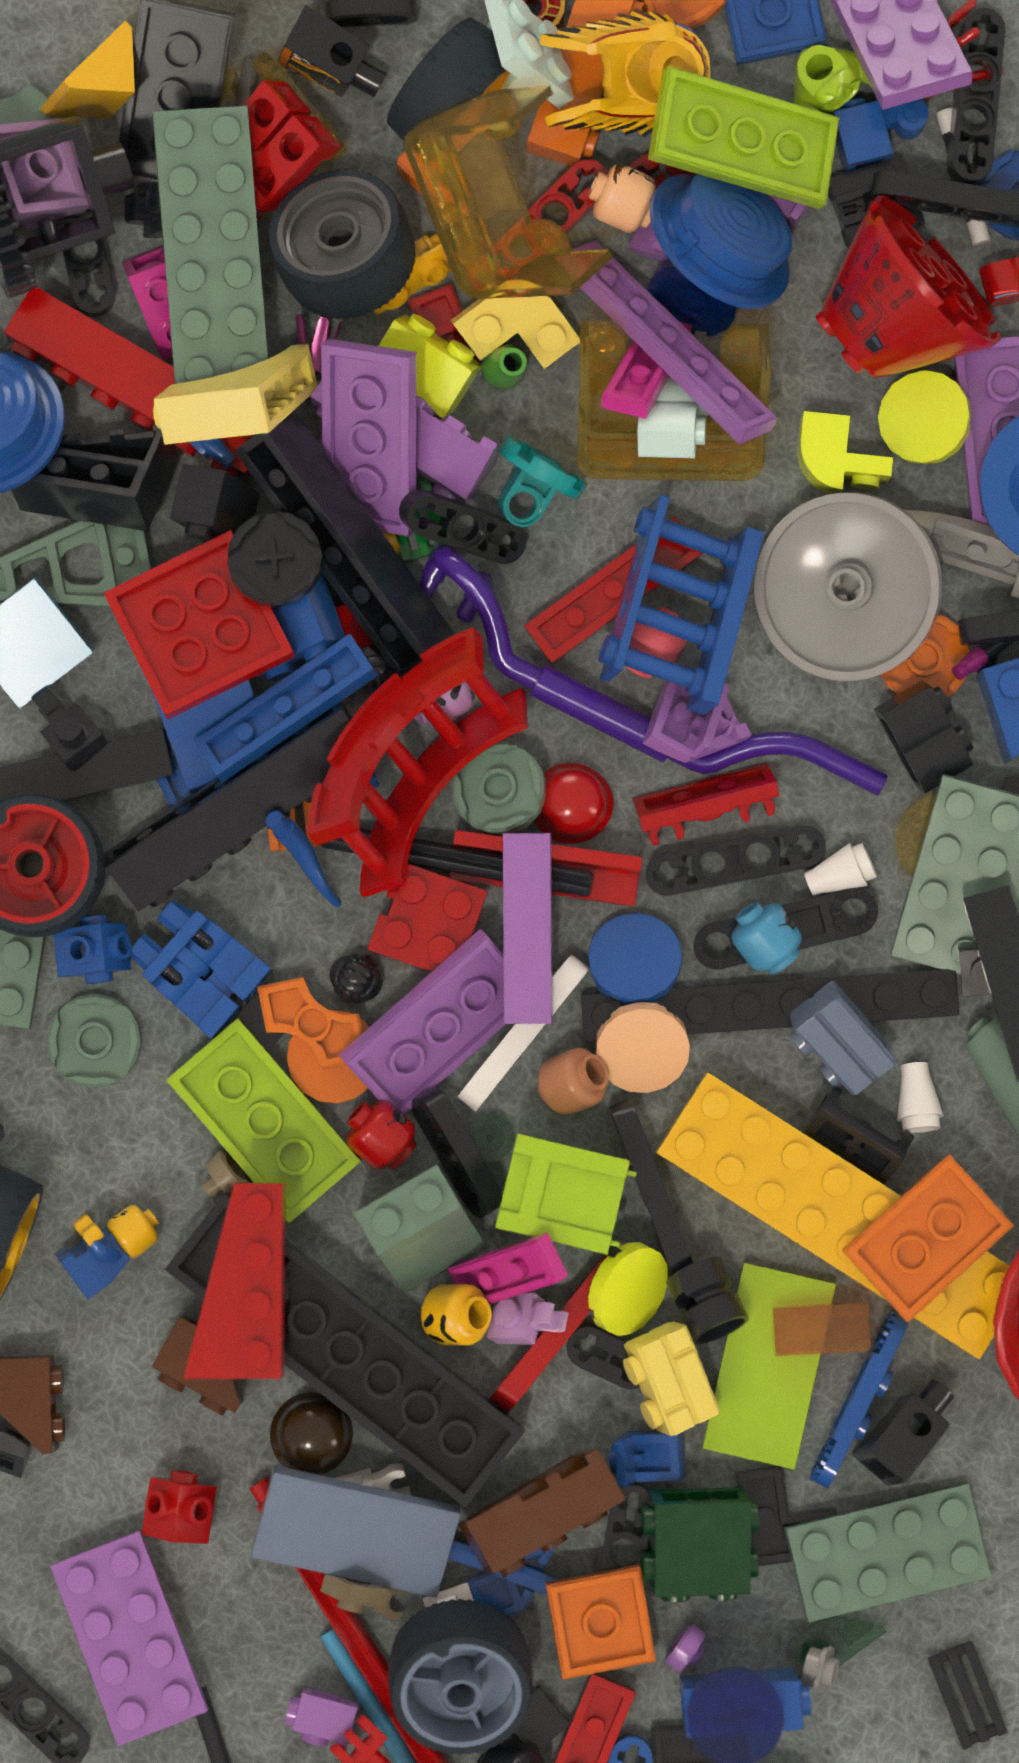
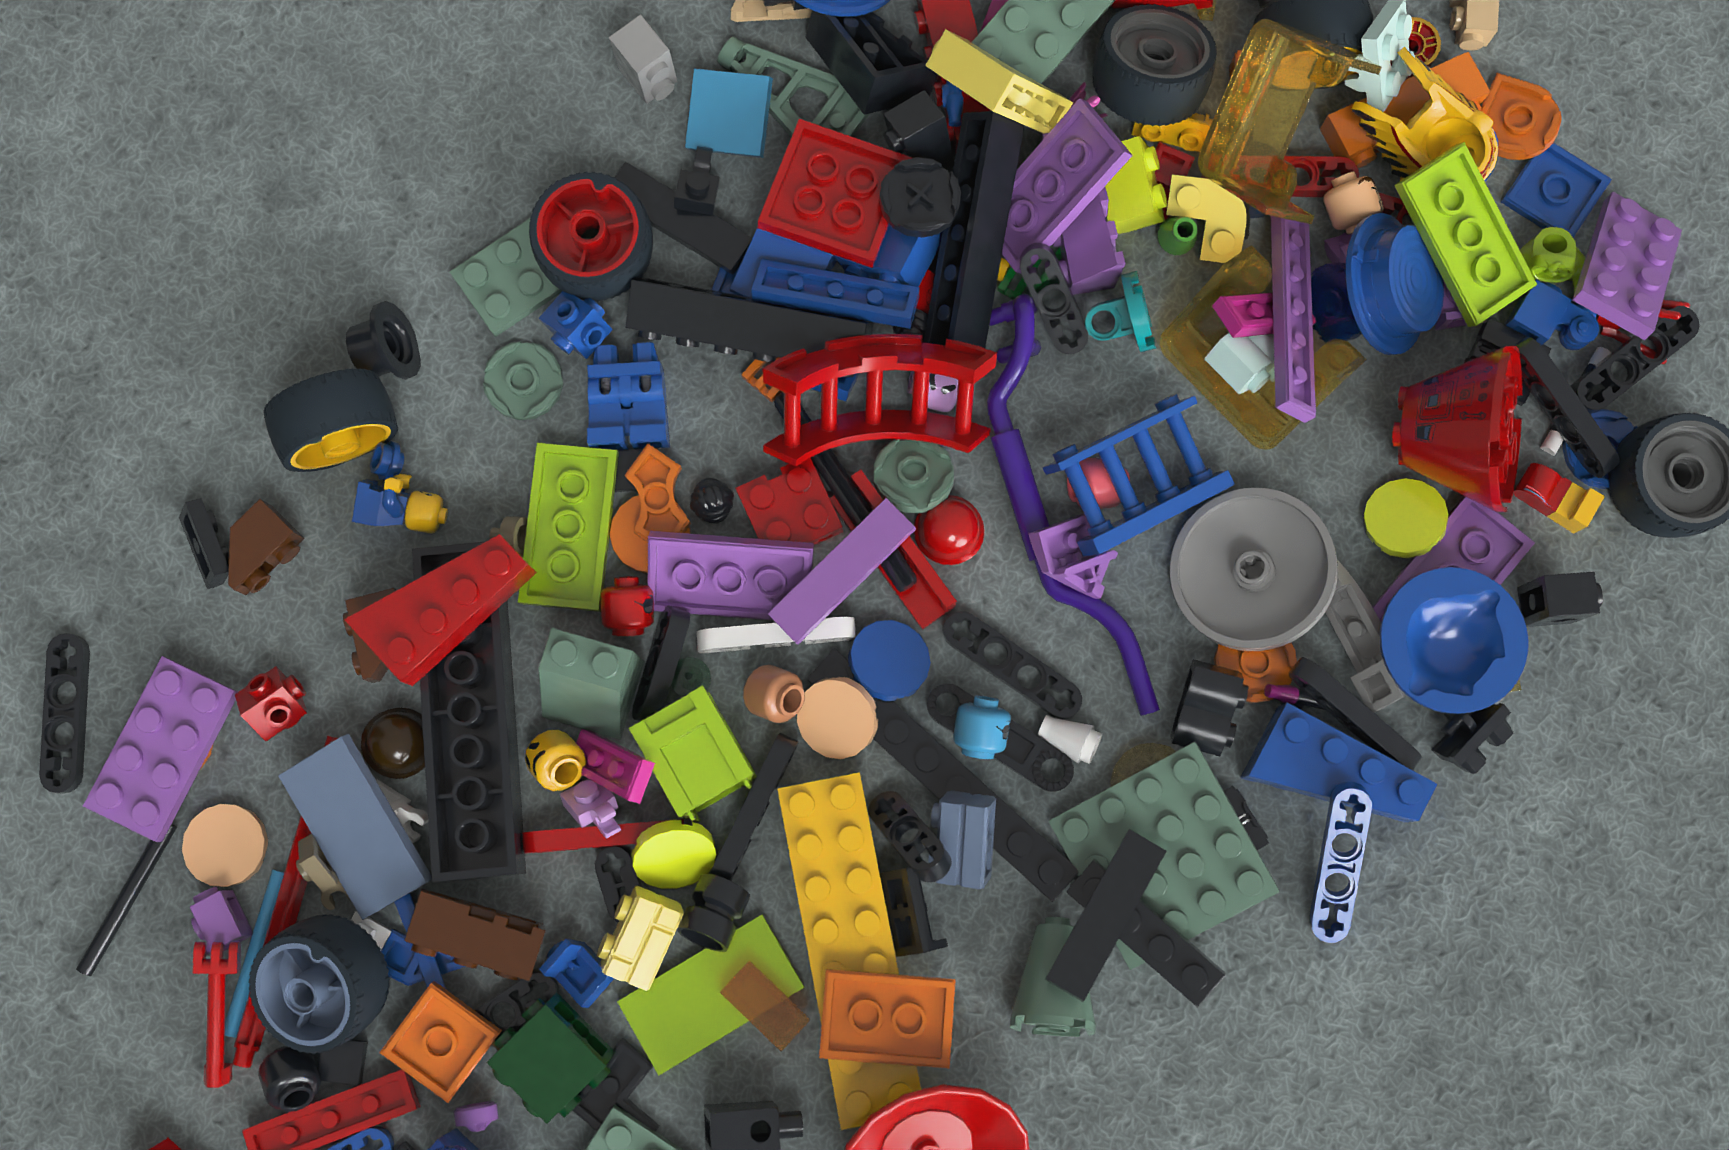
camera: 50 degrees right, 5 degrees down
(56, 1222) = (386, 460): none -> blue plate
(260, 1658) = (224, 845): none -> light nougat tile
(299, 846) = (757, 391): blue animal -> none
(597, 601) = (1083, 424): red plate -> none
(706, 800) = (1032, 610): red plate -> none
(811, 1093) = (910, 850): none -> black beam
(825, 456) = (1318, 483): neon yellow brick -> none
(853, 1417) = (726, 1083): blue plate -> none
(918, 1101) = (972, 927): white cone -> none

